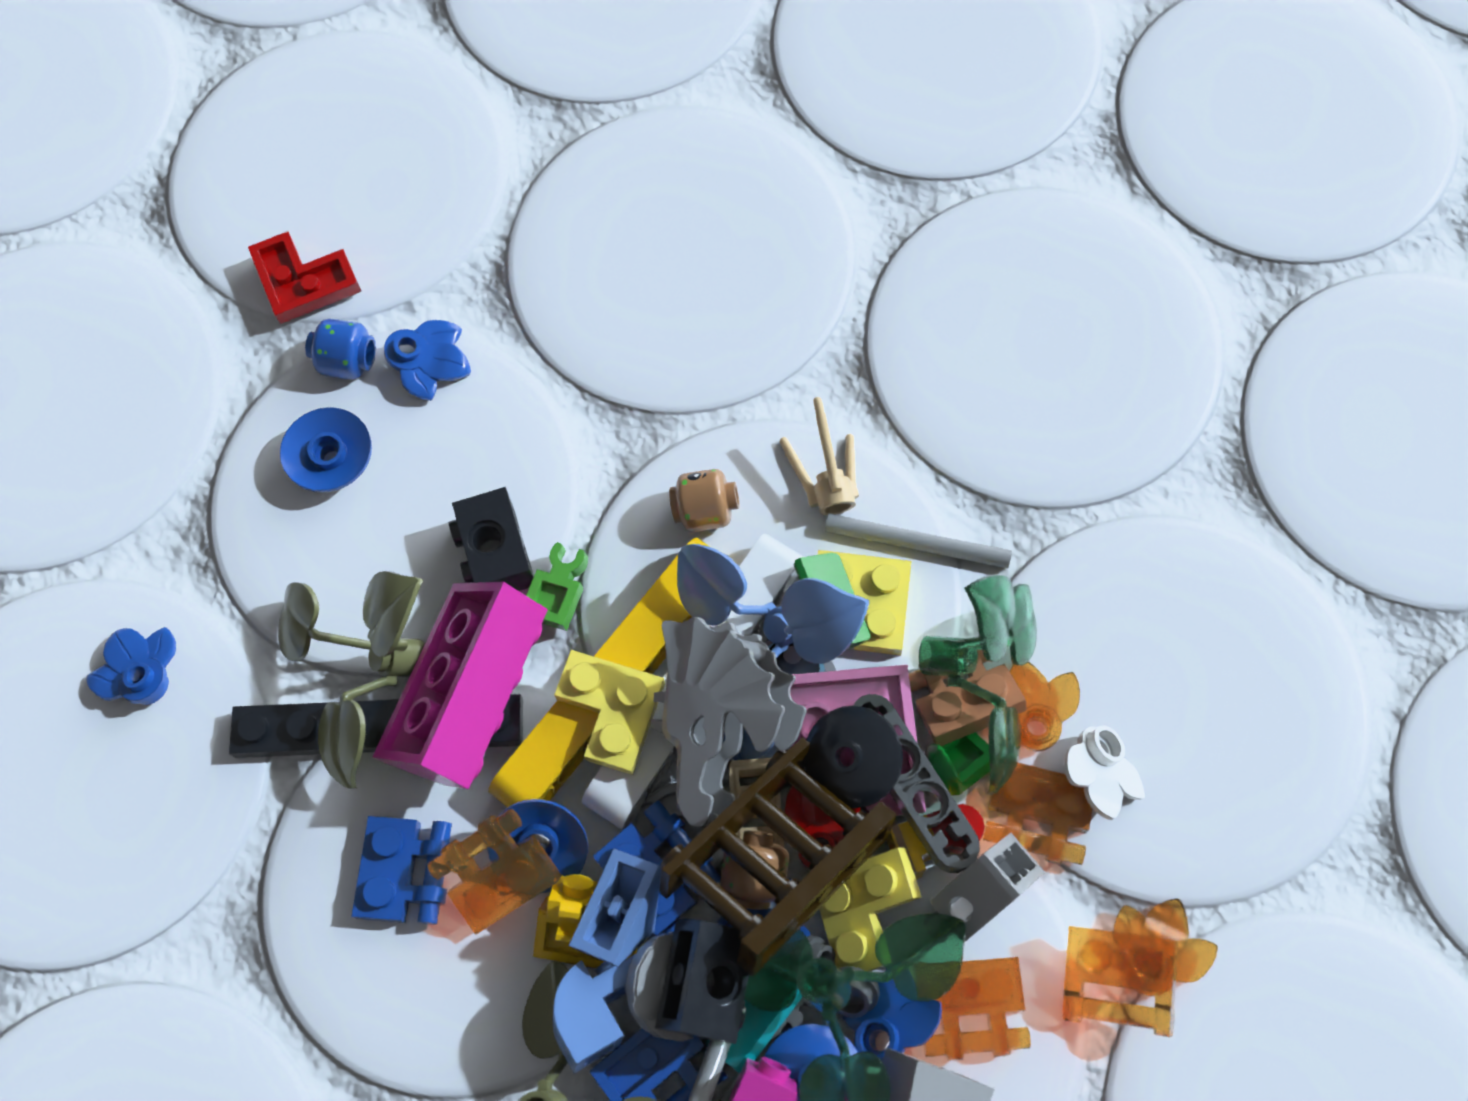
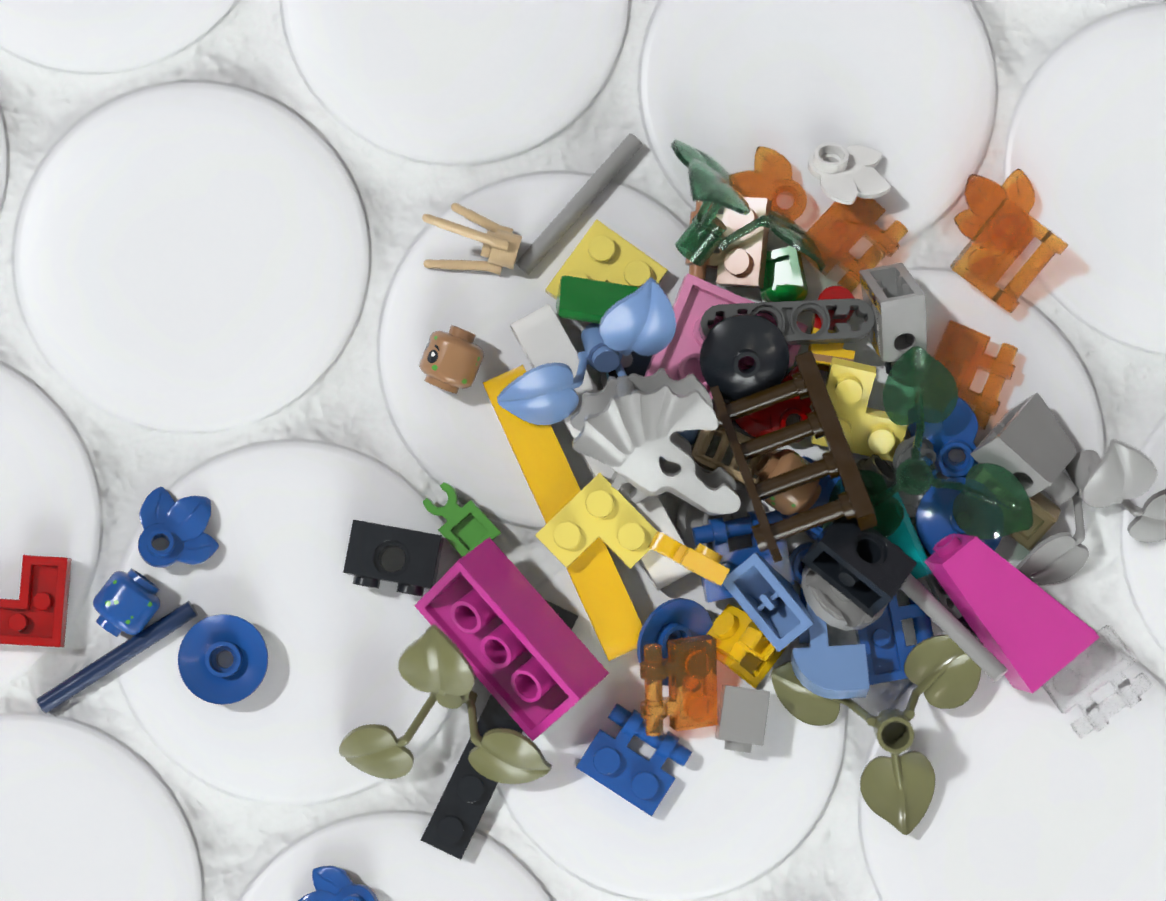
camera: 70 degrees left, 15 degrees up
(292, 369) = (117, 657): none -> dark blue bar
(493, 954) = (742, 717): none -> light grey brick
(622, 817) = (701, 561): none -> yellow plate

